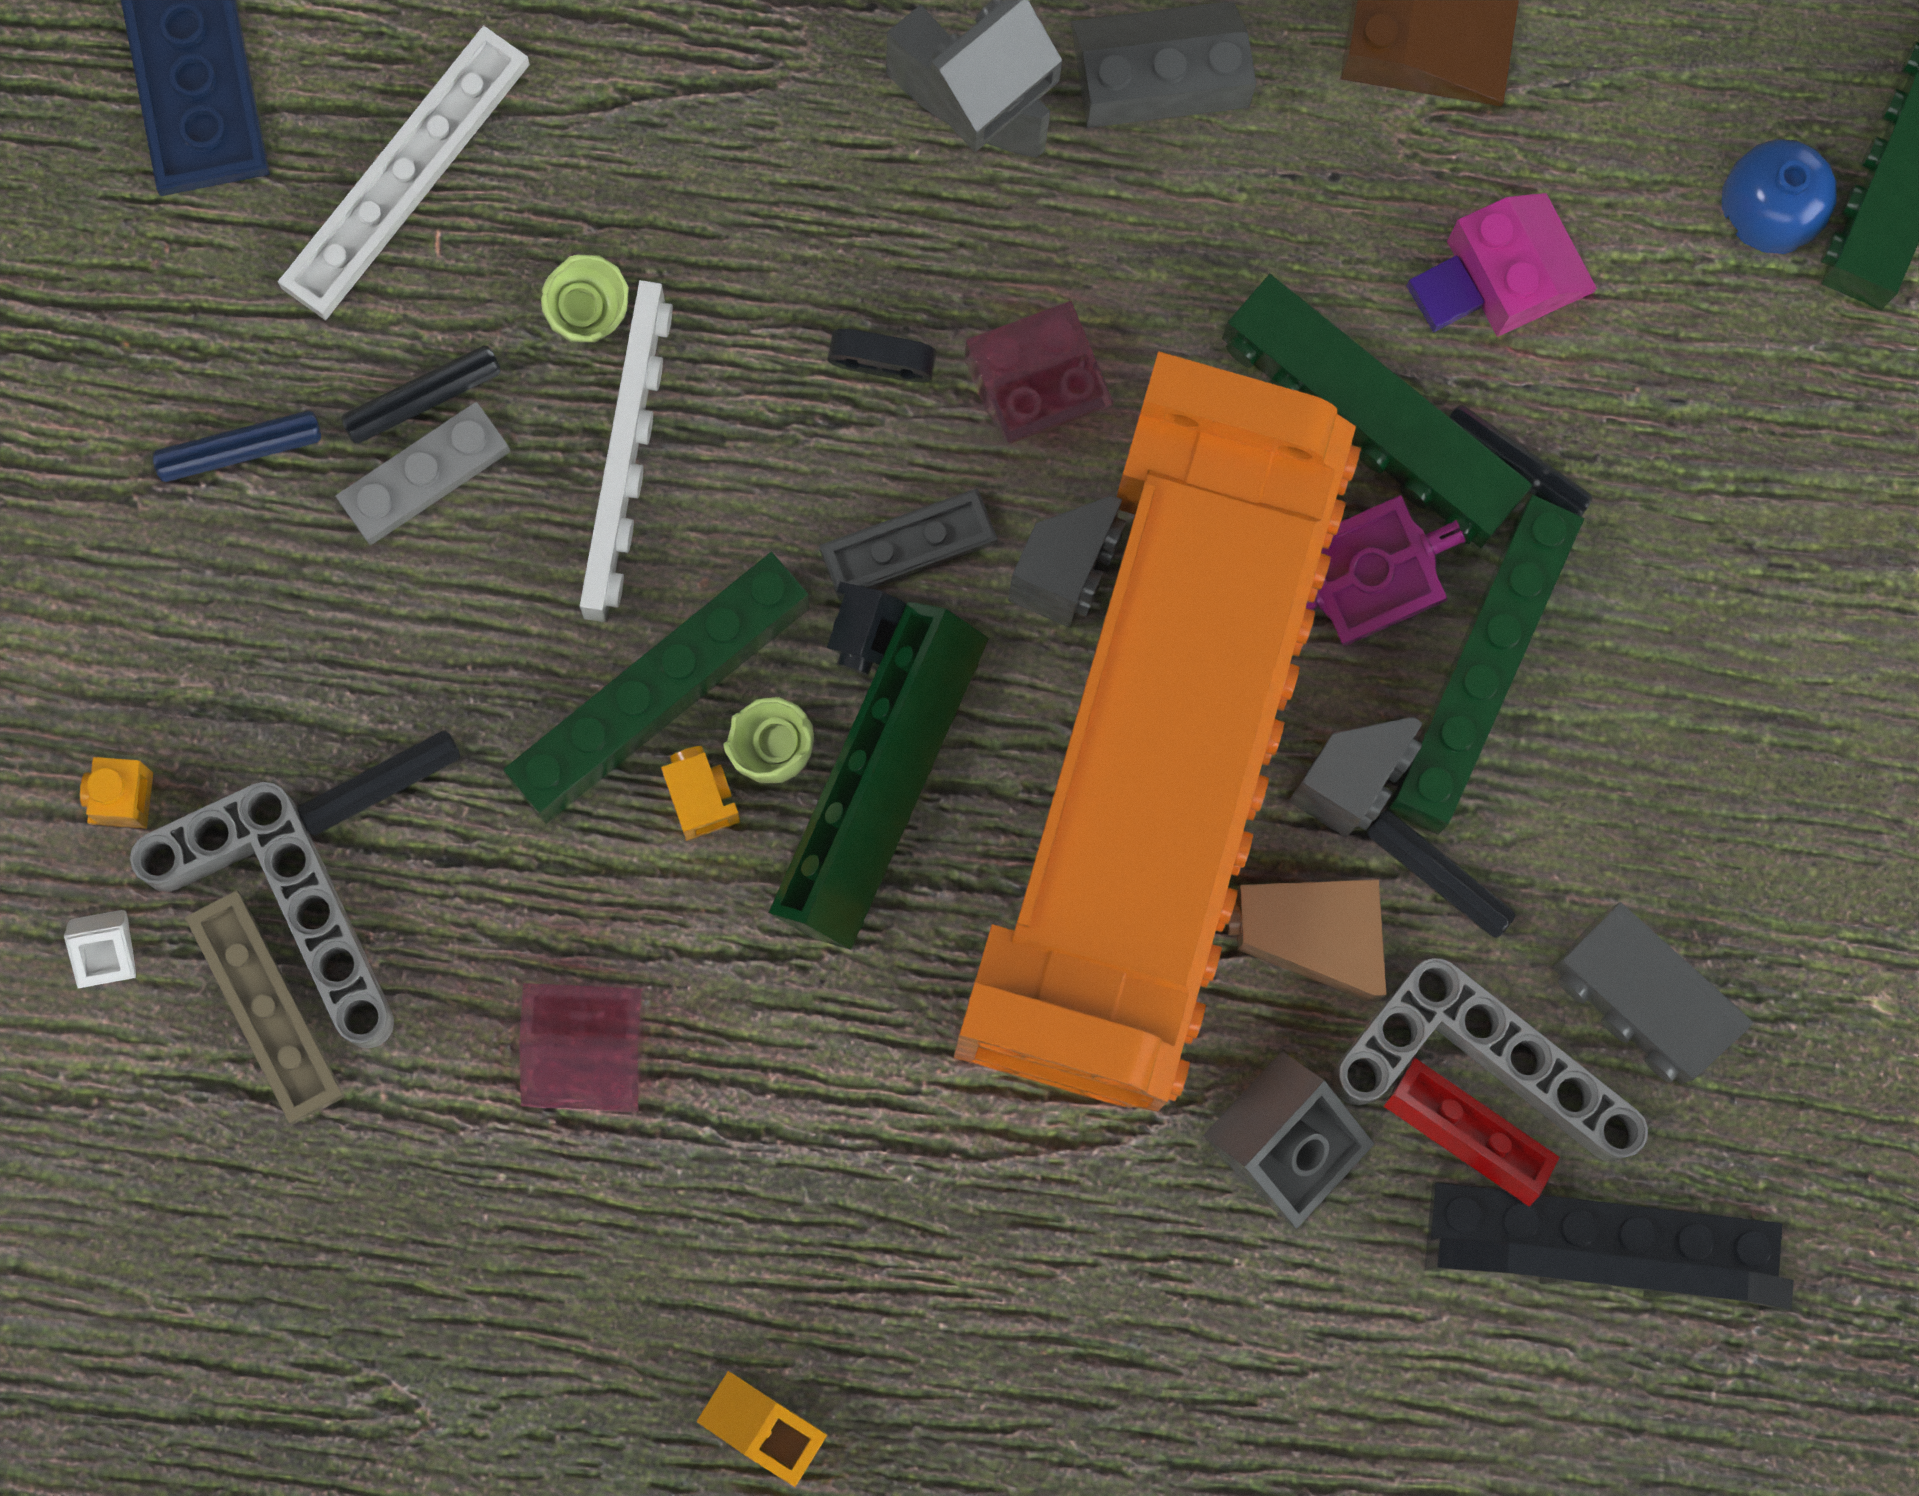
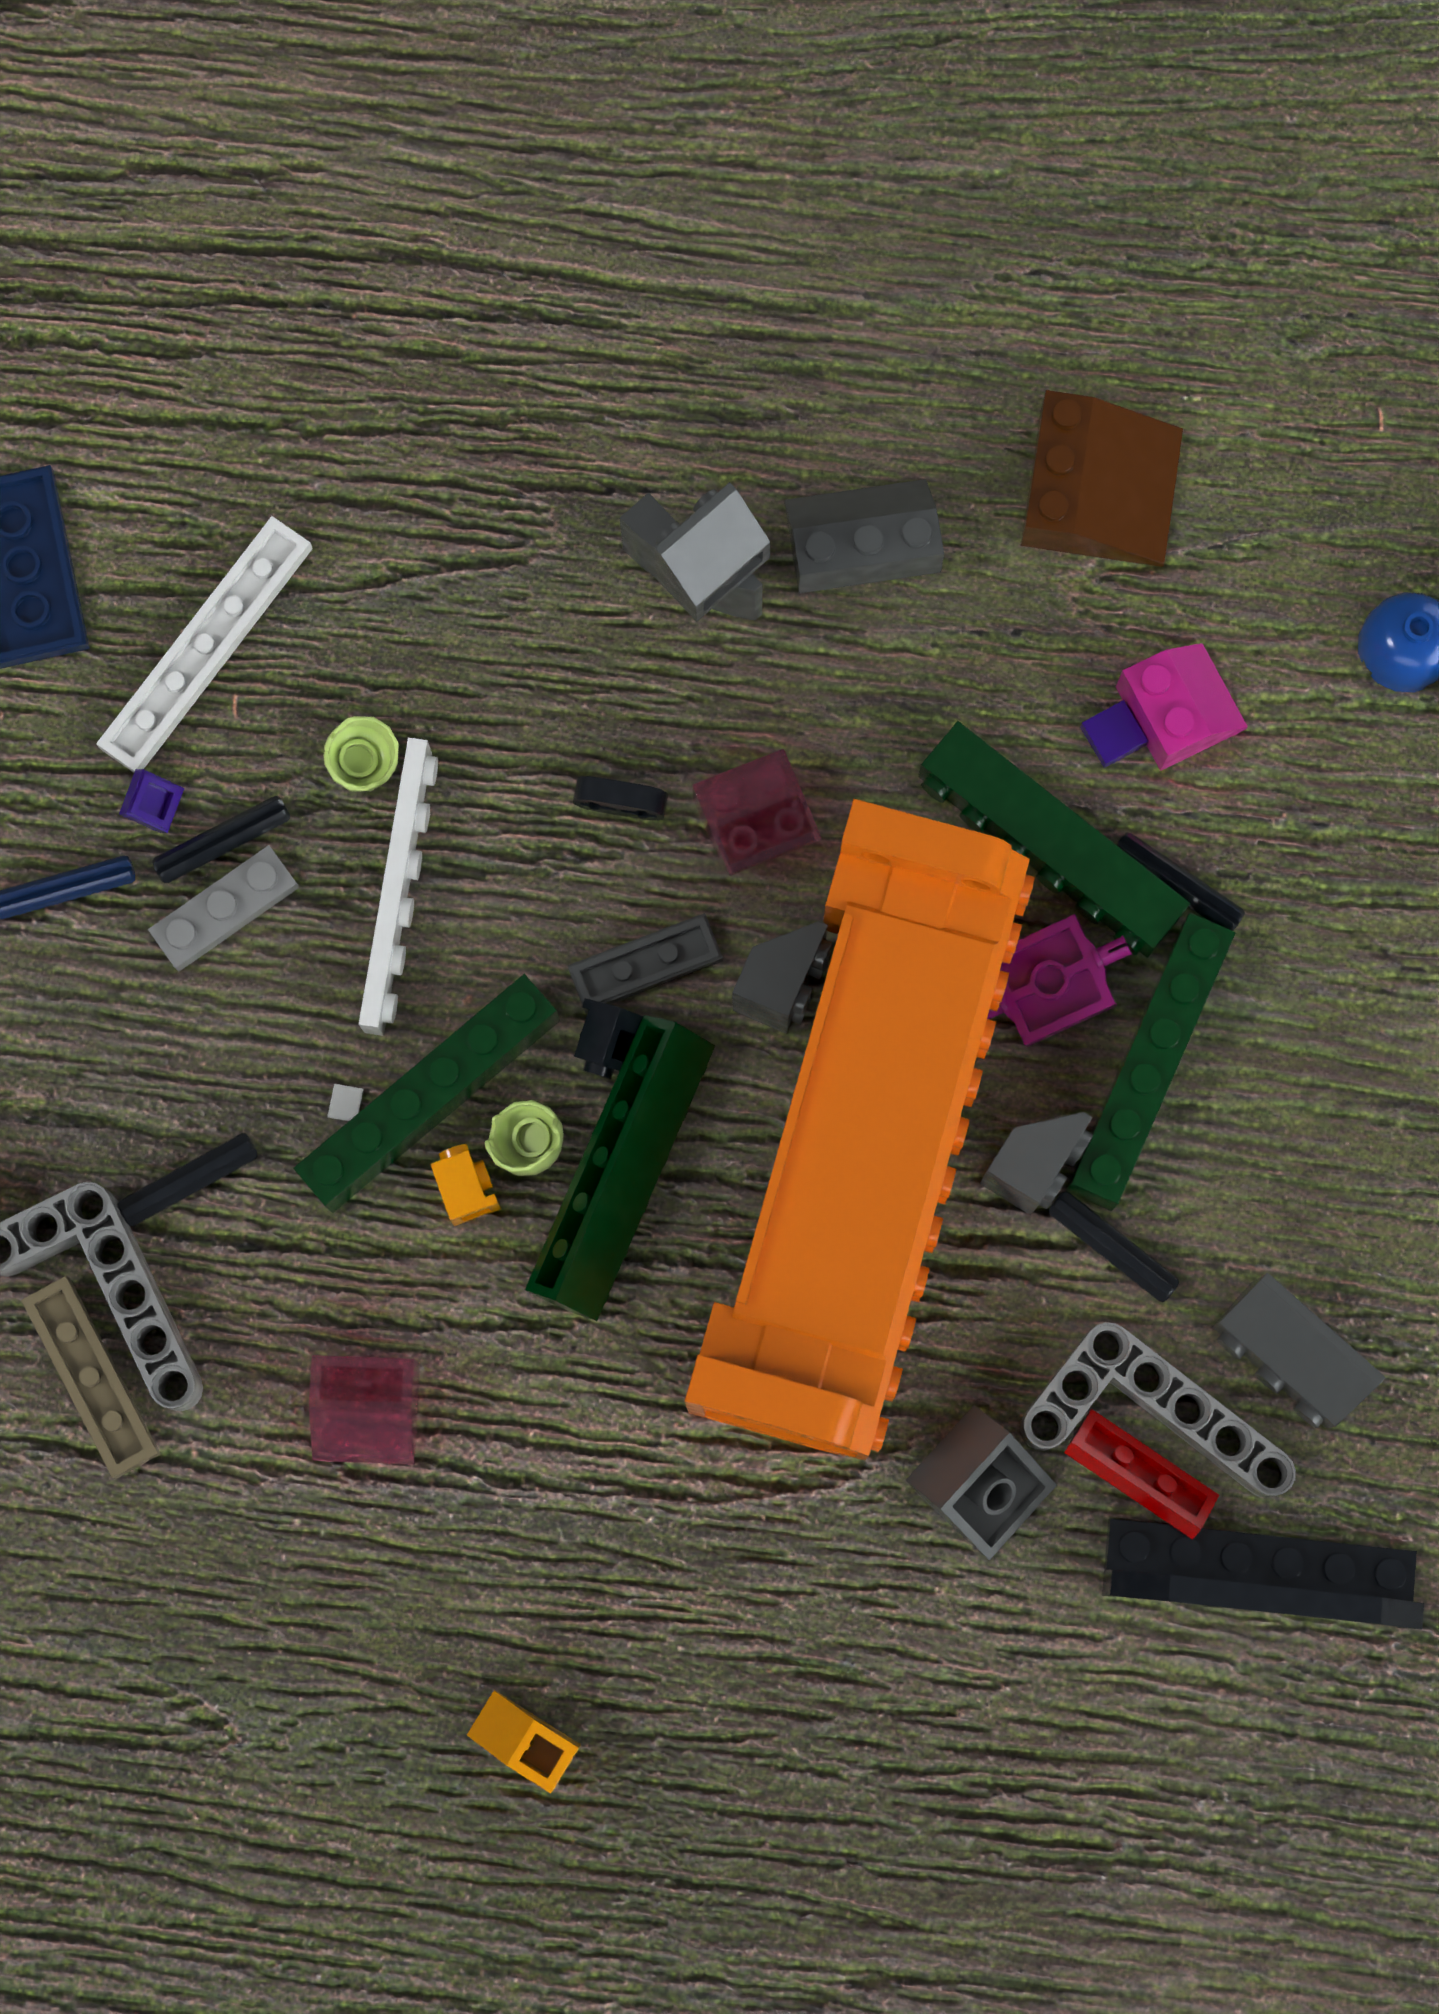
camera: 10 degrees right, 0 degrees up
(341, 348) = (151, 801): none -> dark purple tile
(561, 697) = (345, 1102): none -> white window
(1316, 931) = (1003, 1298): medium nougat slope -> none

